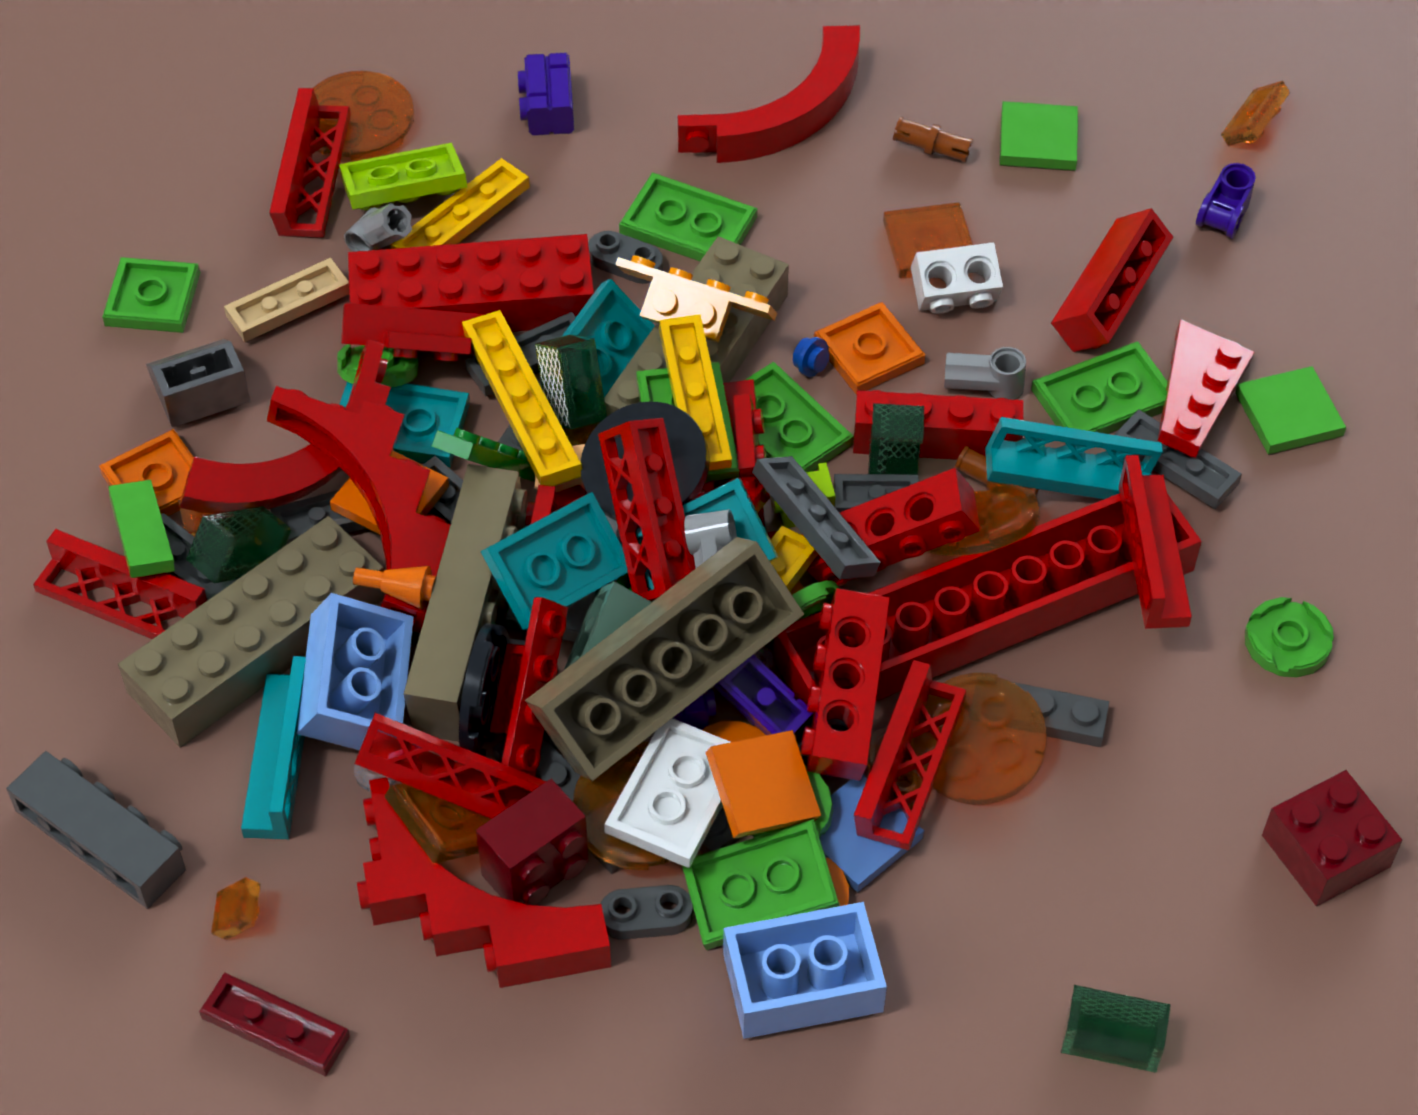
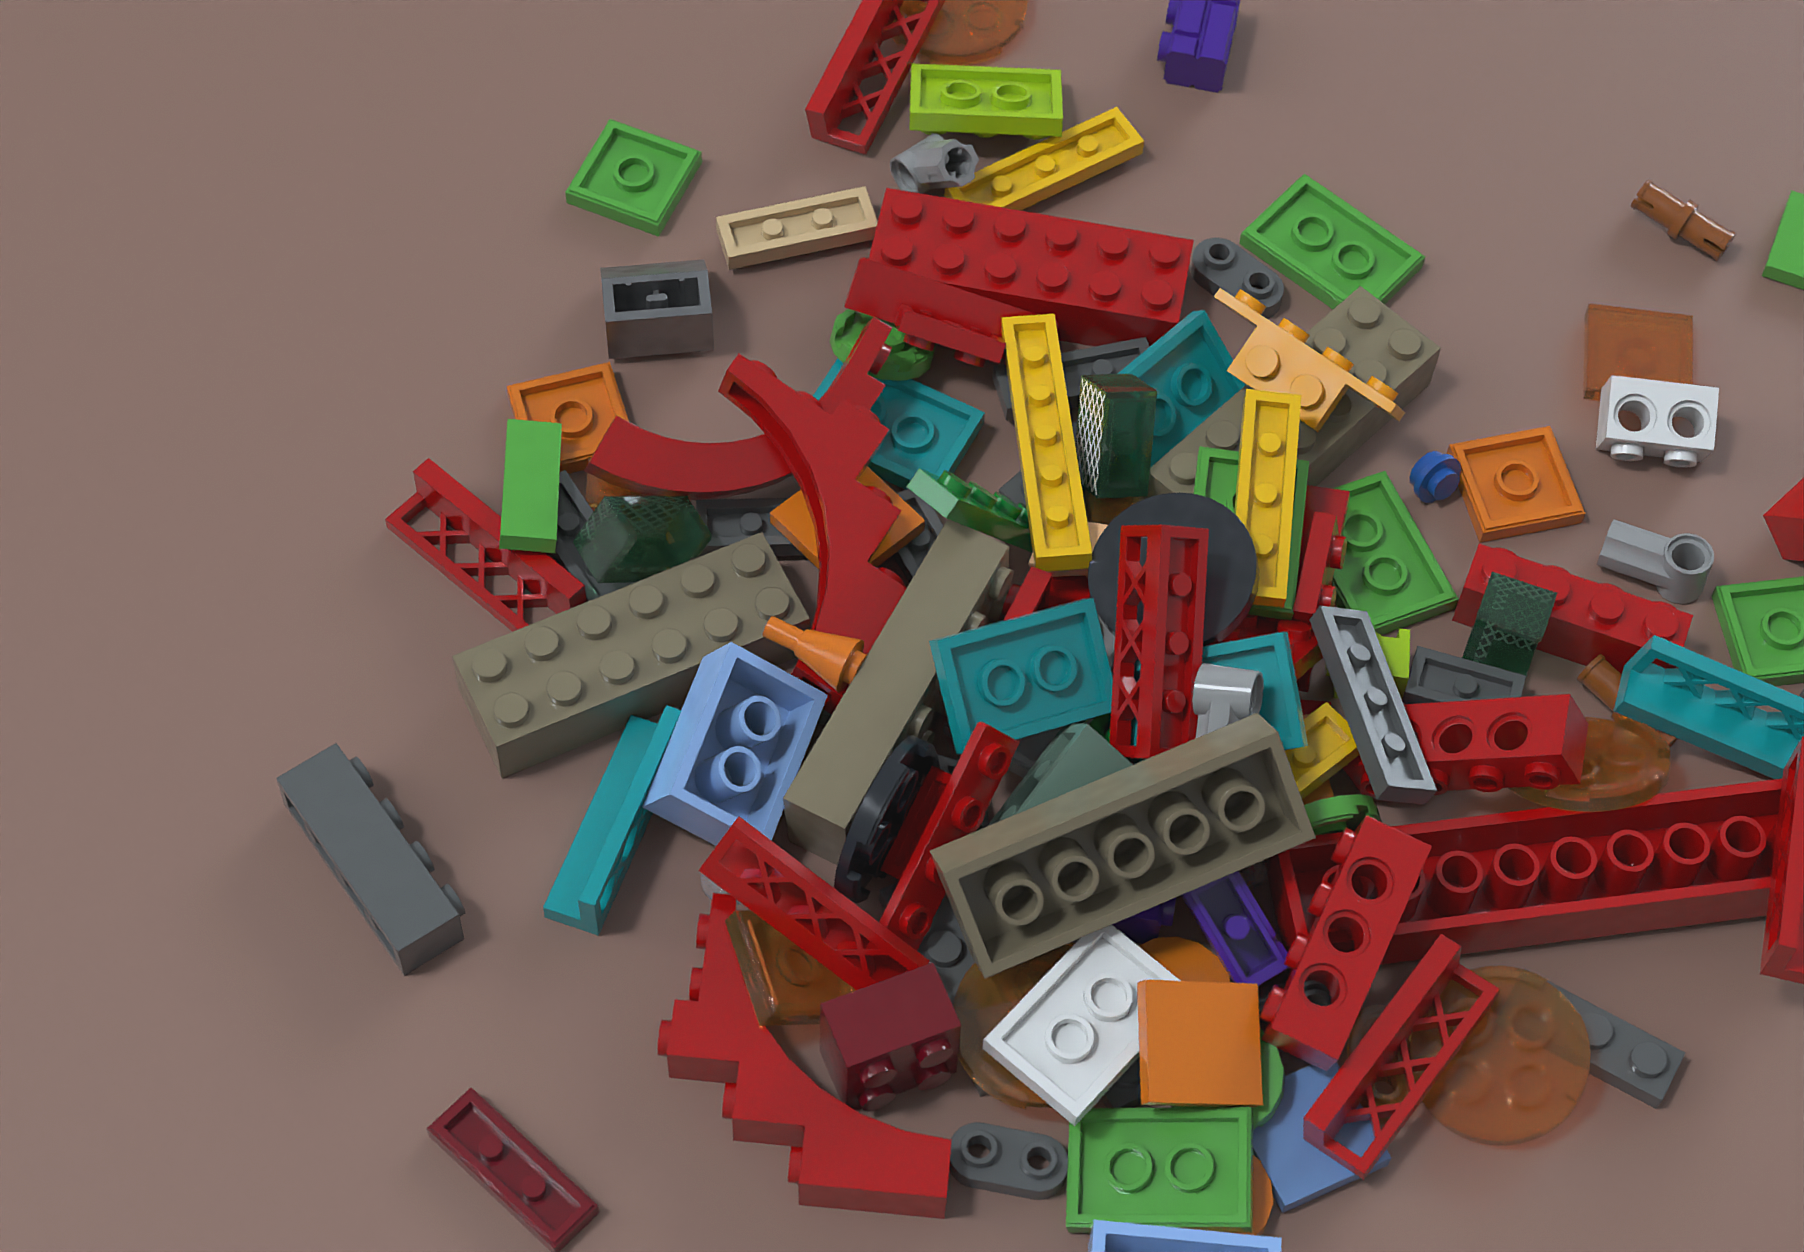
camera: 15 degrees right, 5 degrees up
(236, 908) = (507, 1010): clear orange plate -> none
(787, 119) = (1501, 144): red arch -> none

